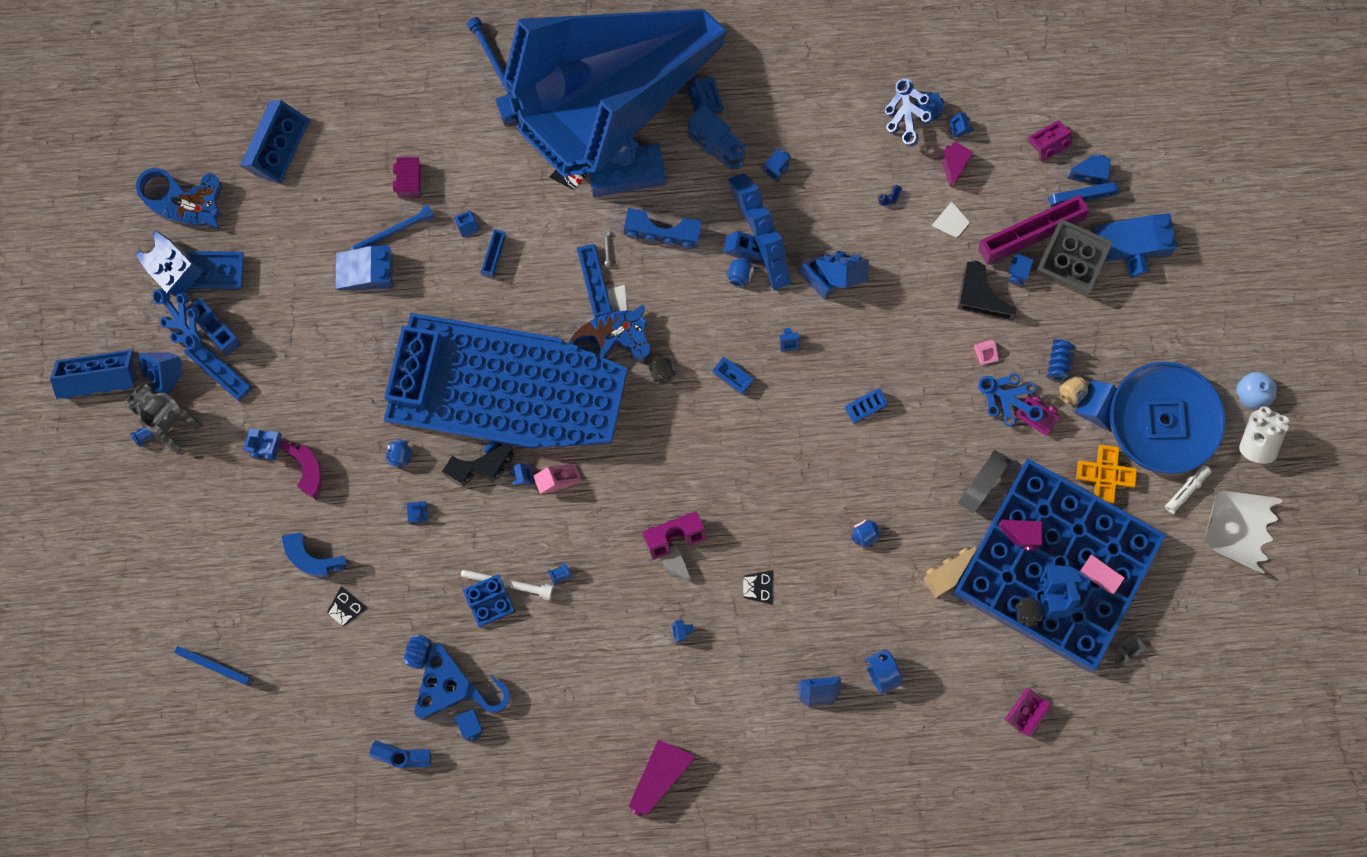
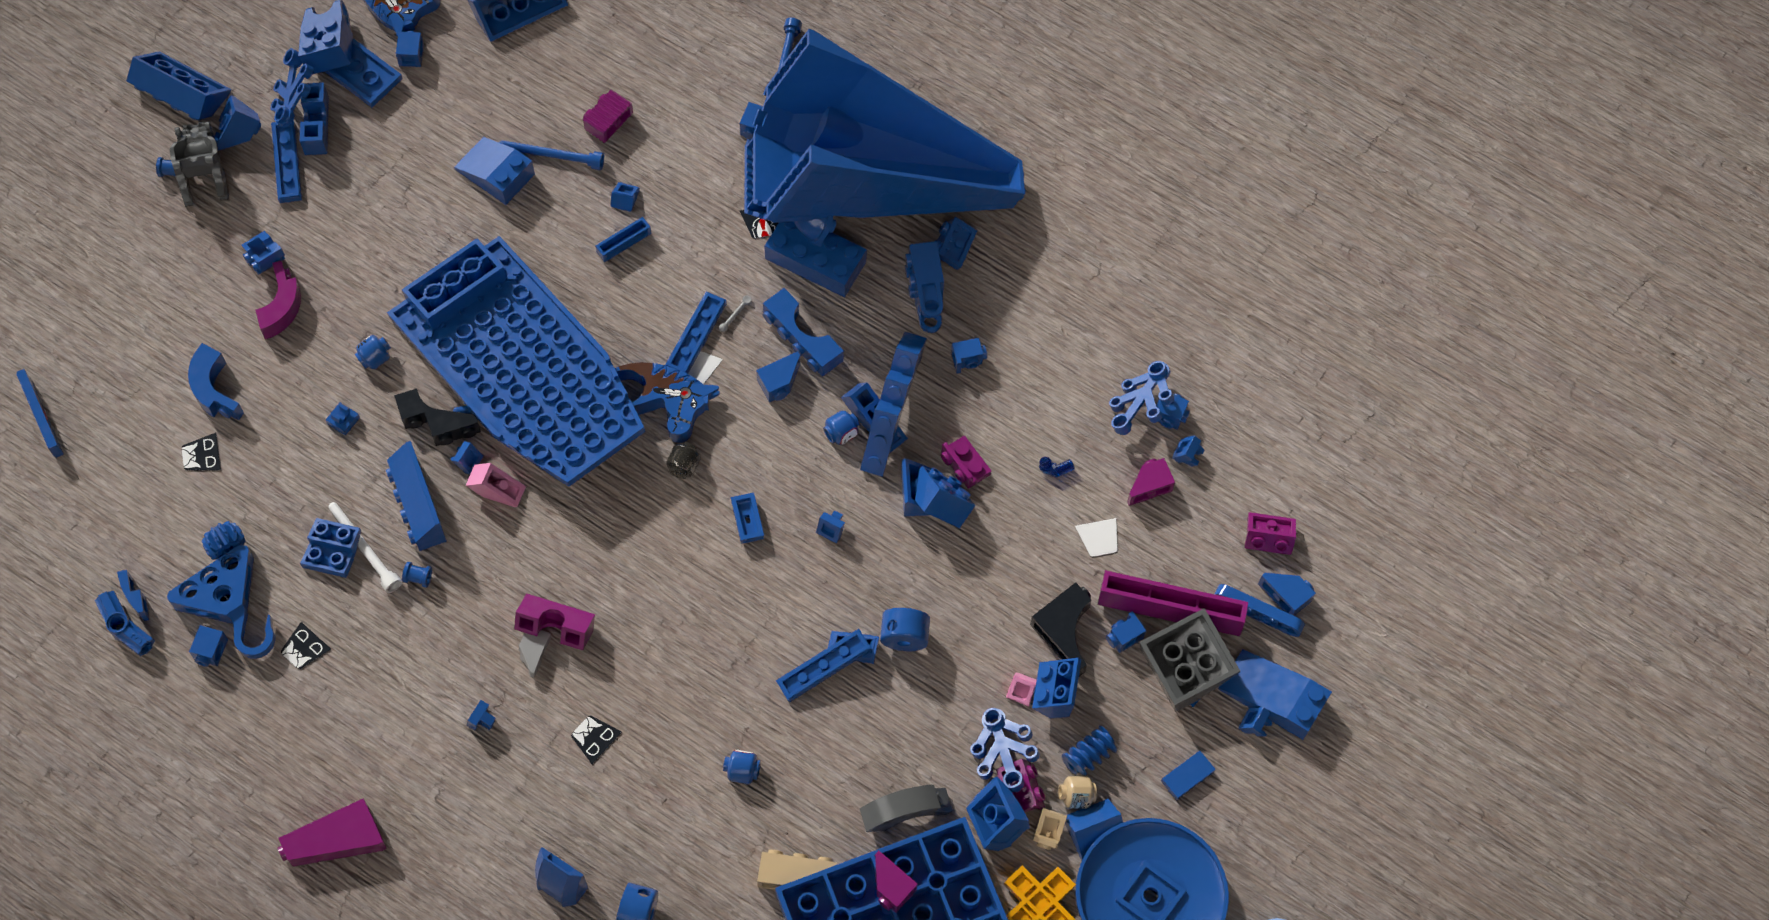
camera: 40 degrees right, 10 degrees down
(231, 229) = (409, 49): none -> blue brick
(394, 733) = (134, 597): none -> blue slope
(516, 526) = (415, 498): none -> blue slope
(527, 676) = (303, 647): none -> black sticker
(674, 270) = (778, 377): none -> blue slope
(833, 235) = (965, 461): none -> magenta bracket
(861, 431) = (824, 665): none -> blue tile
(892, 371) = (909, 631): none -> blue piece
(1013, 335) = (1056, 687): none -> blue slope
(1040, 441) = (997, 816): none -> blue slope
(1076, 426) = (1049, 829): none -> tan bracket
(1125, 329) = (1188, 775): none -> blue tile

